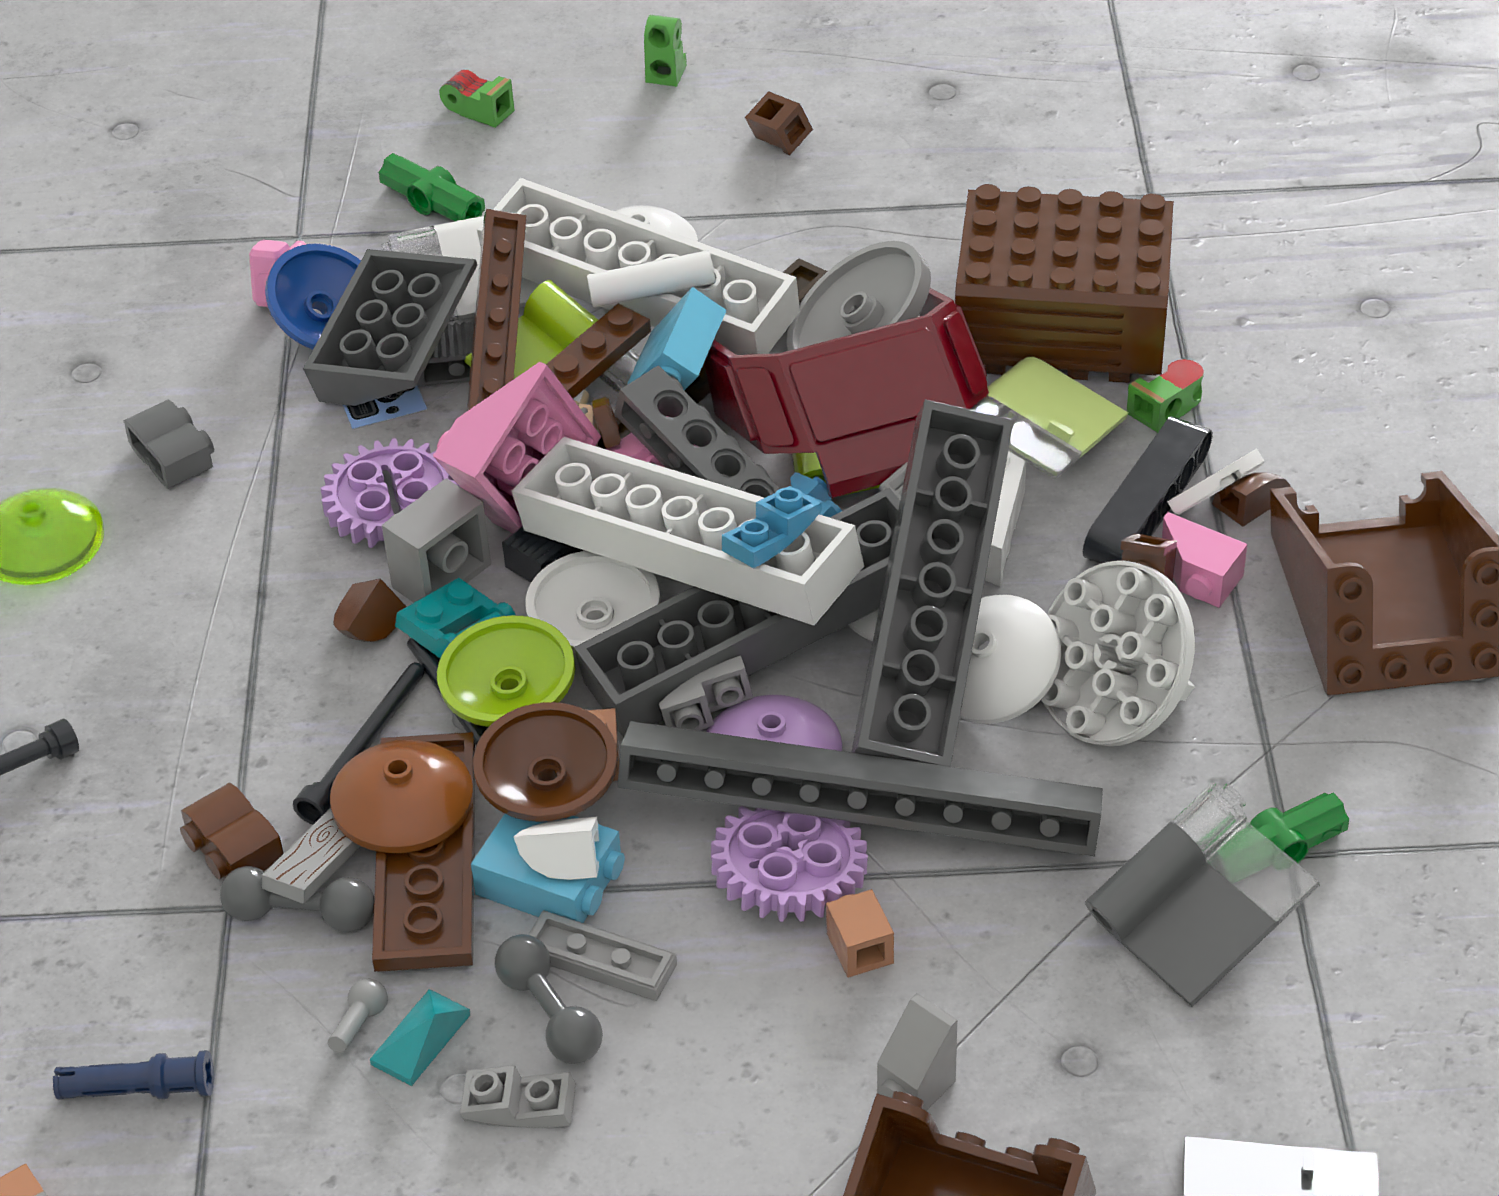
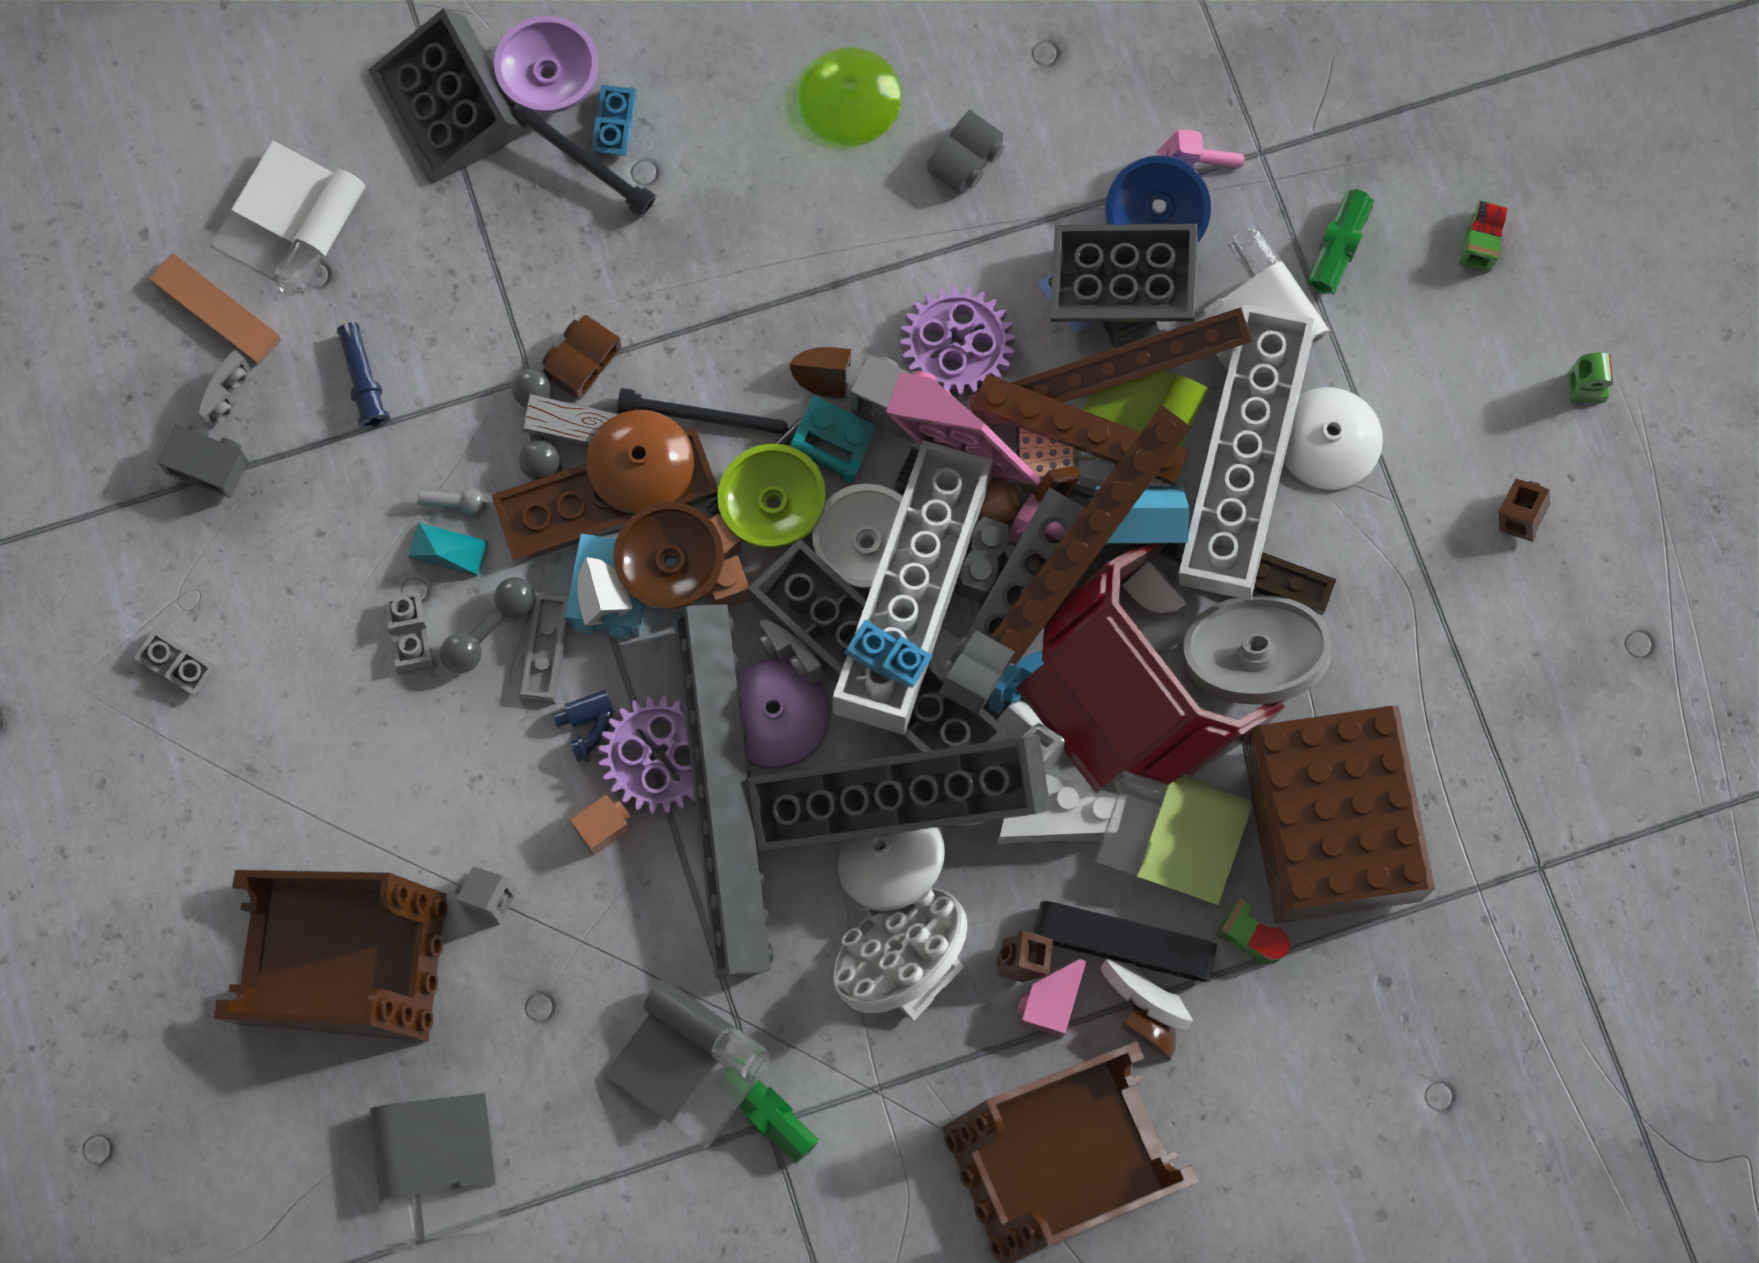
camera: 70 degrees right, 30 degrees up
(651, 278) = (1210, 473): white piece -> none
(688, 368) = (1090, 531): none -> reddish brown plate
(701, 930) = (582, 711): none -> dark blue plant
(830, 486) = (975, 672): none -> dark grey brick

